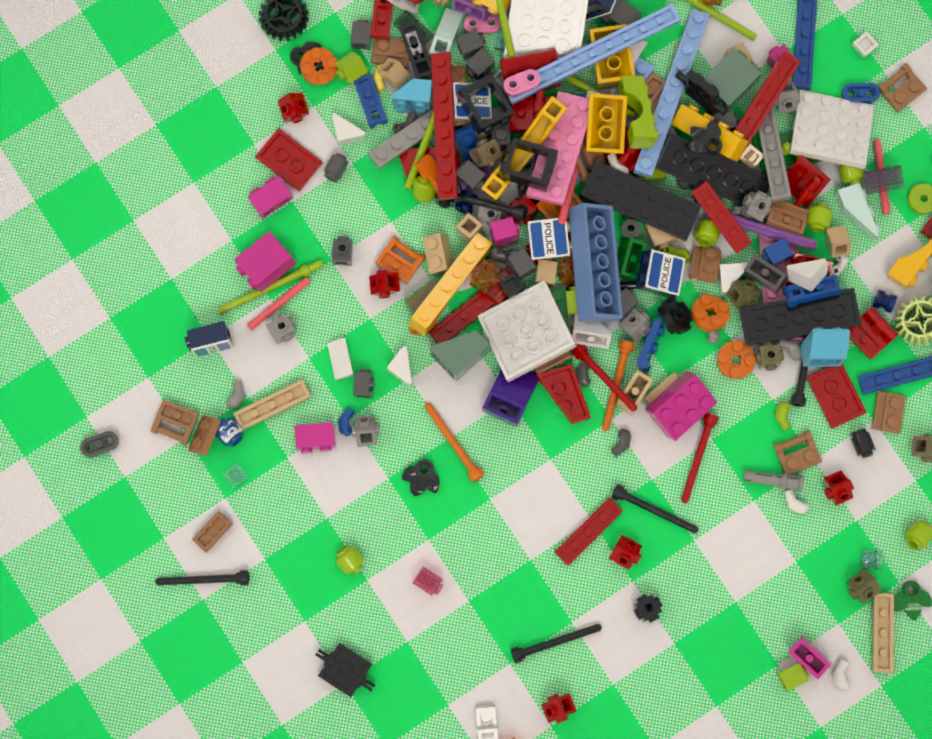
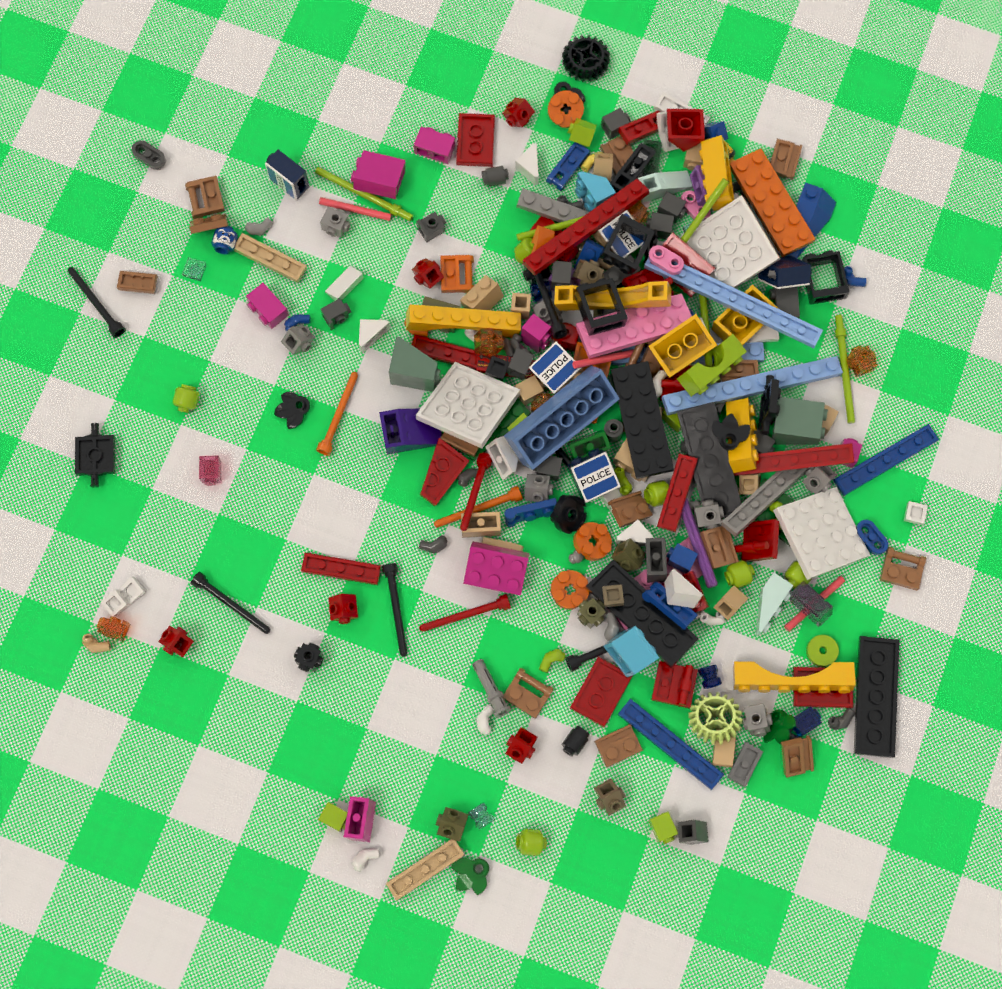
camera: 50 degrees right, 5 degrees down
(771, 329) = (613, 595): none -> dark tan plate

